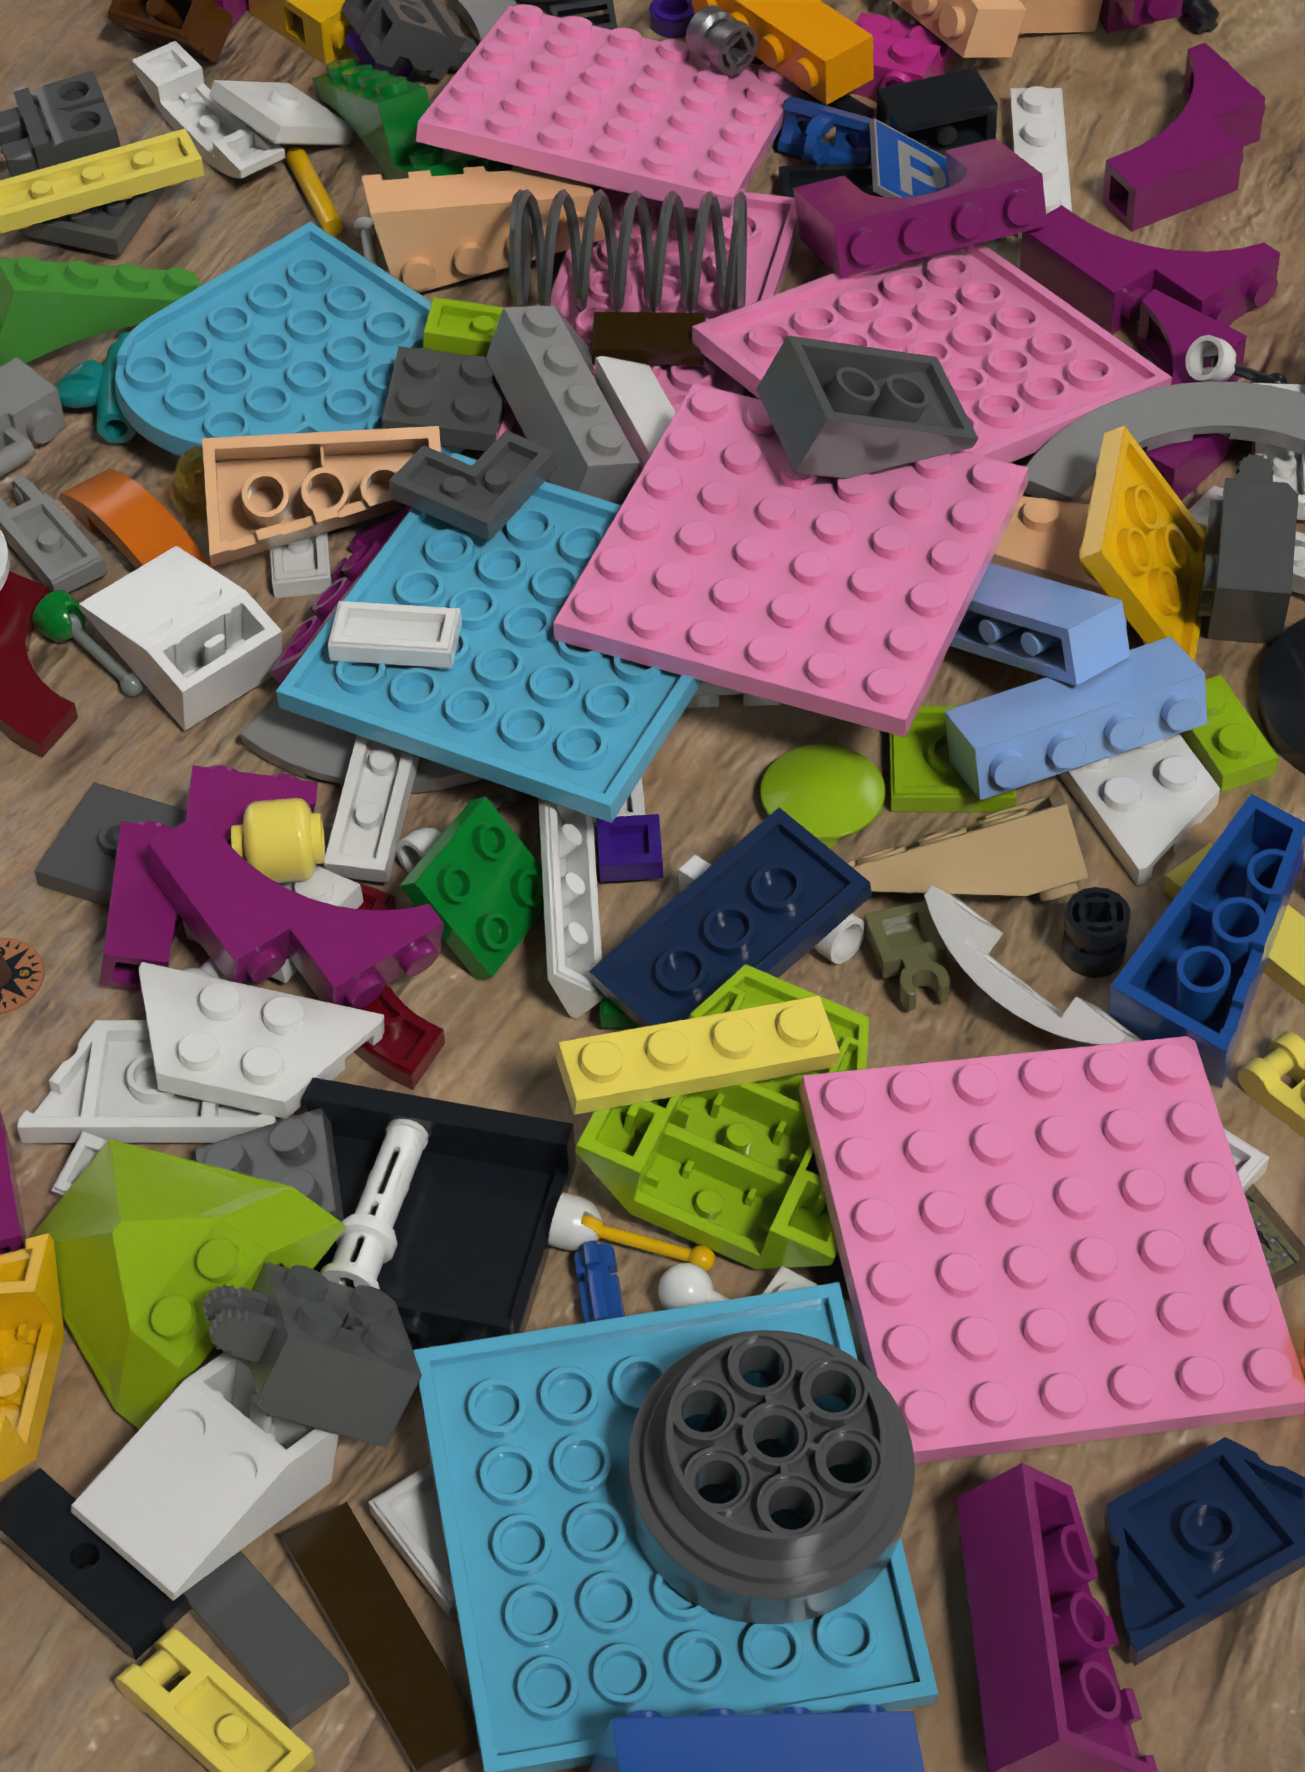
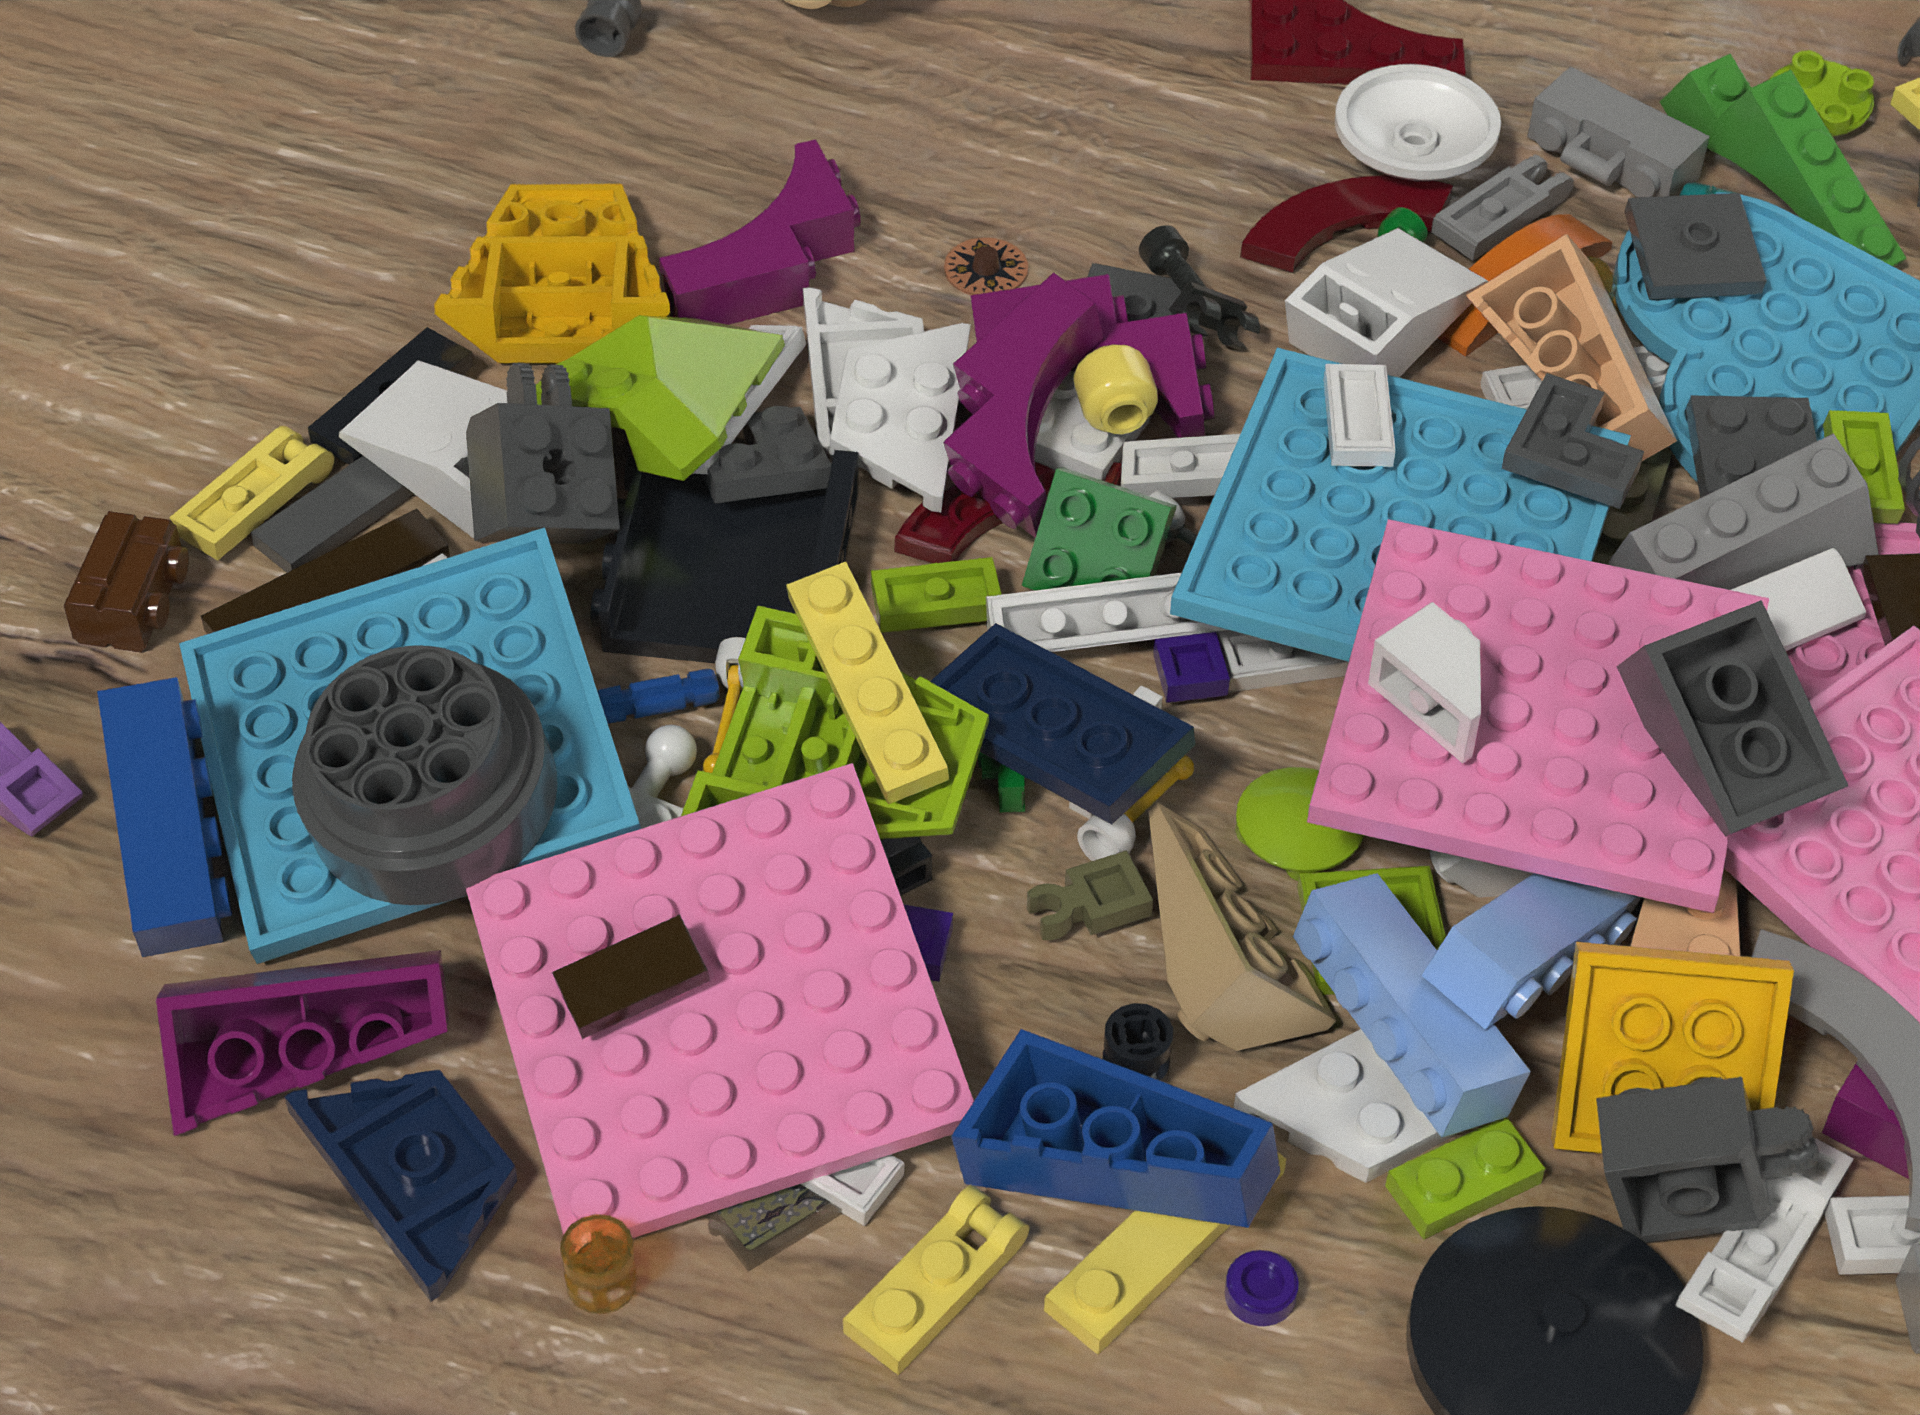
camera: 80 degrees right, 0 degrees up
(51, 800) = (1166, 253): none -> pearl dark grey bar
(191, 380) = (1694, 246): none -> dark grey plate
(369, 1232) = (700, 515): white pin -> none
(500, 1045) = (933, 594): none -> lime plate
(799, 590) = (1432, 676): none -> white slope
(971, 940) = (1056, 970): white slope -> none
(1044, 1292) = (631, 976): none -> dark brown tile

